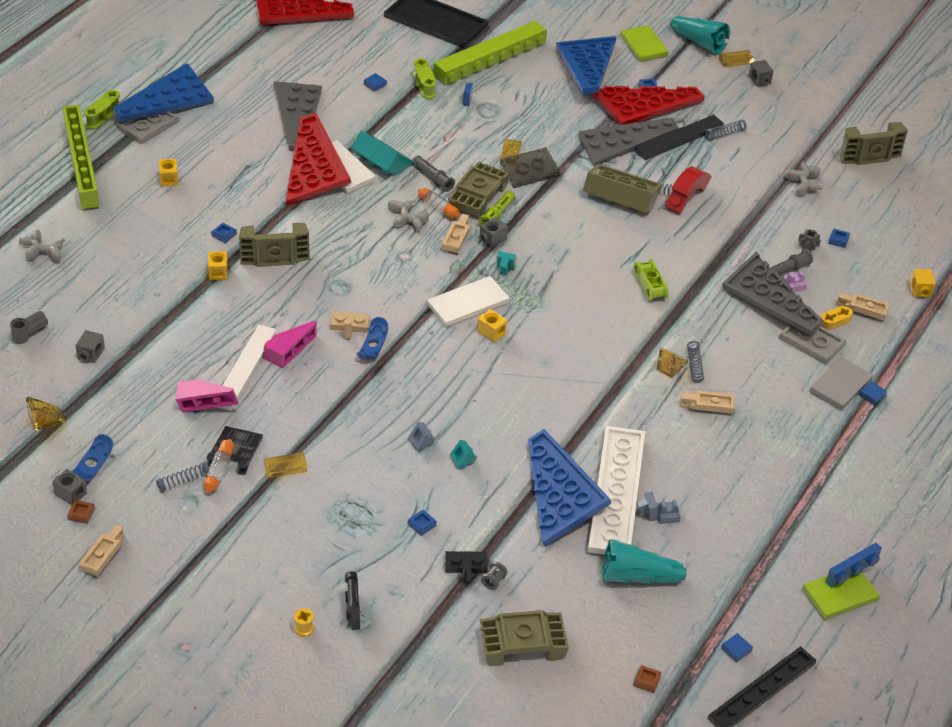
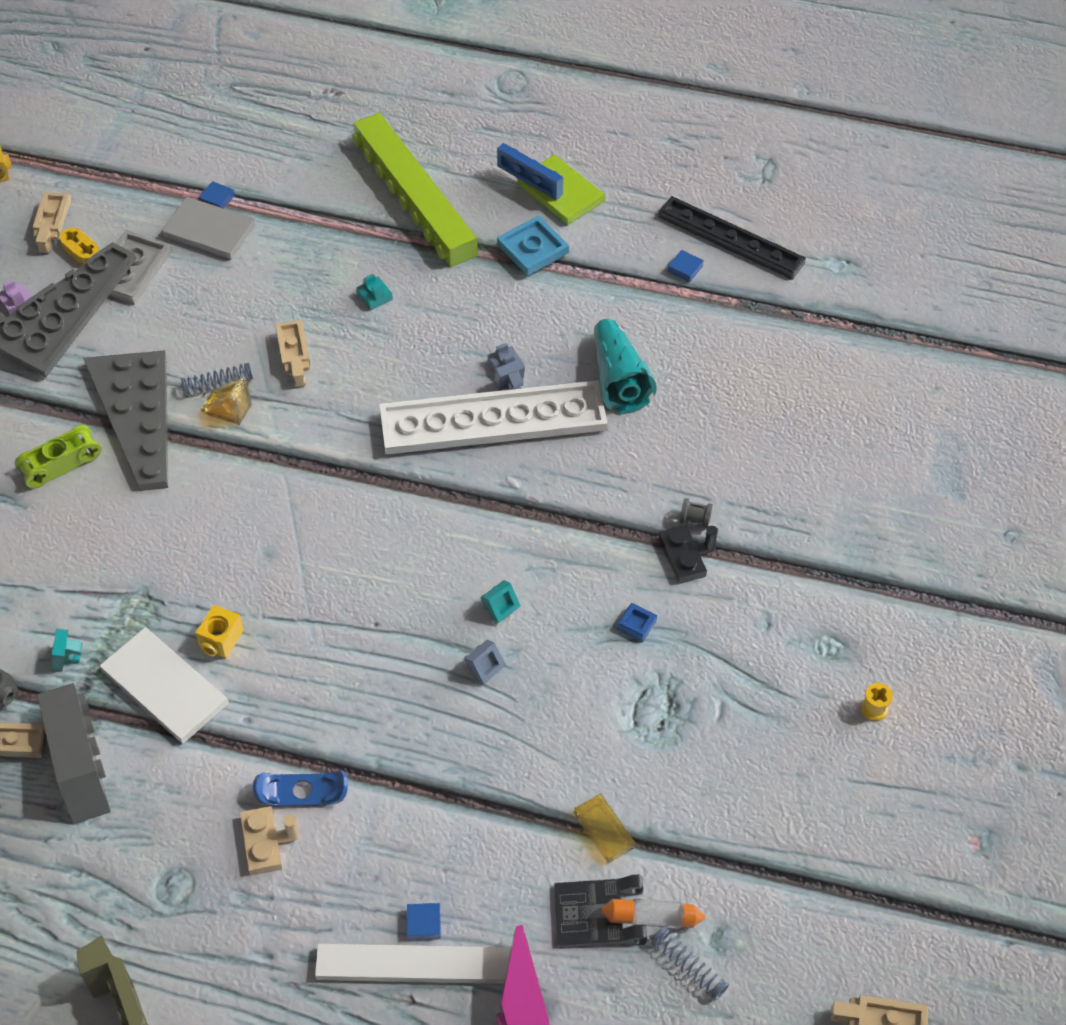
camera: 105 degrees left, 10 degrees up
(268, 374) = (423, 921): none -> blue tile
(289, 344) = (357, 910): dark pink slope -> none
(352, 600) = (828, 647): black plate -> none
(435, 253) = (74, 752): none -> dark grey wedge
(524, 634) = (782, 456): olive plate -> none
(562, 489) = (519, 470): blue wing -> none
(647, 679) = (770, 337): dark orange tile -> none
(691, 323) = (136, 405): none -> dark grey wing
(755, 456) = (374, 292): none -> teal tile
(779, 555) = (533, 245): none -> dark azure plate
(855, 498) = (415, 190): none -> lime brick

